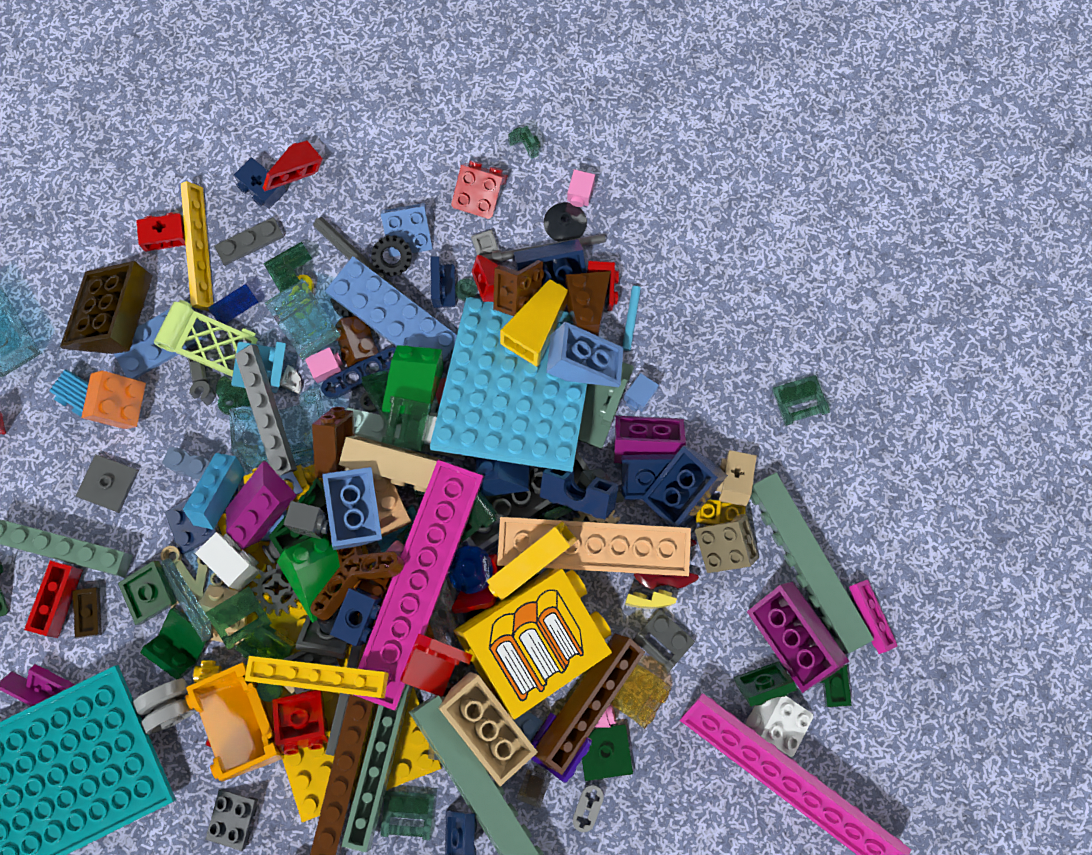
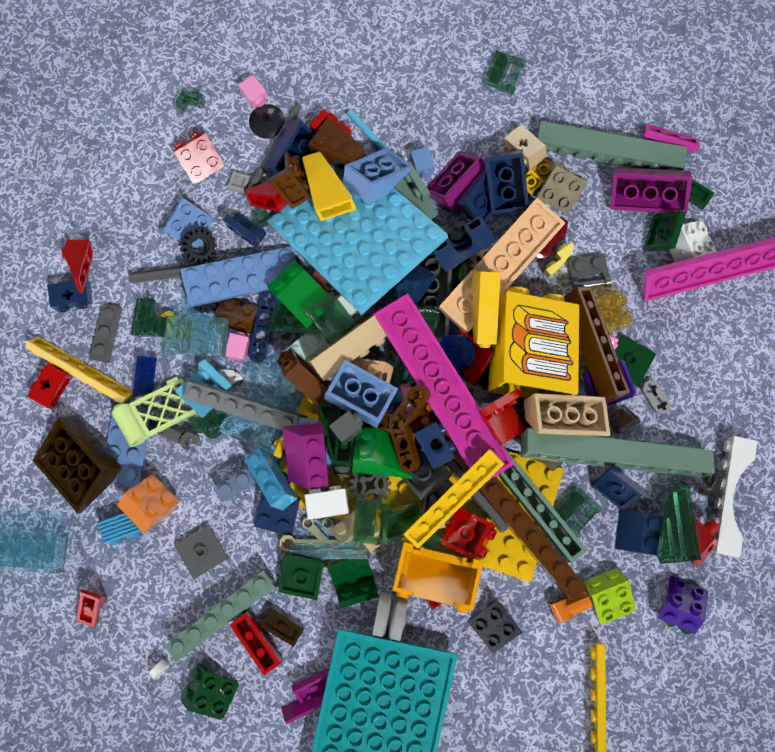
camera: 55 degrees left, 5 degrees up
(207, 669) = (387, 574): yellow gear -> none

